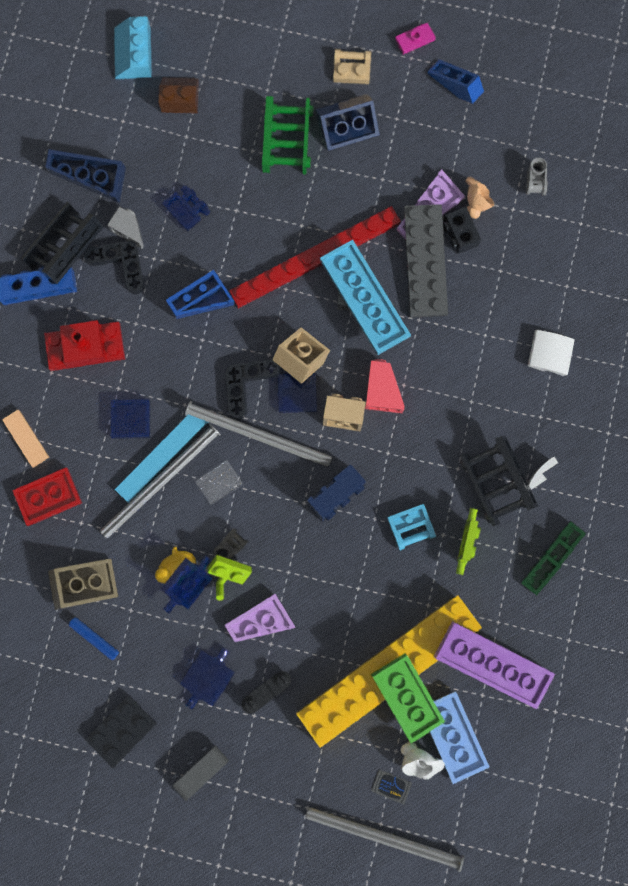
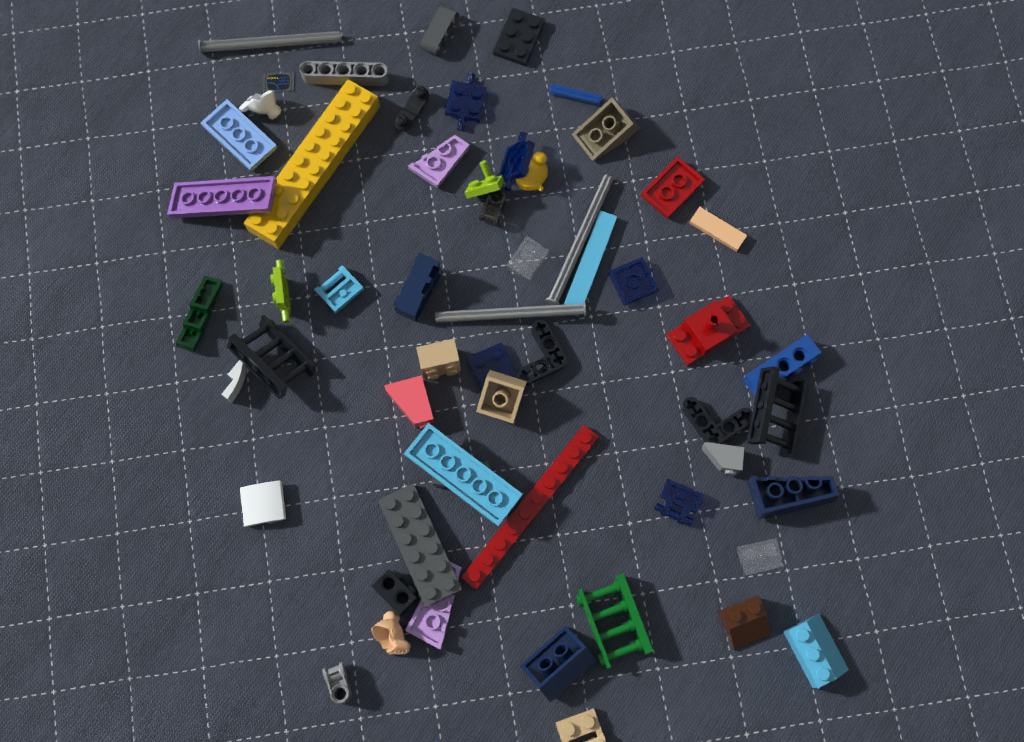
camera: 160 degrees right, 5 degrees down
(140, 138) = (760, 557): none -> clear plate
(200, 297) = (622, 415): blue wedge -> none
(326, 771) = (336, 70): none -> light grey beam
(408, 698) = (287, 140): bright green plate -> none

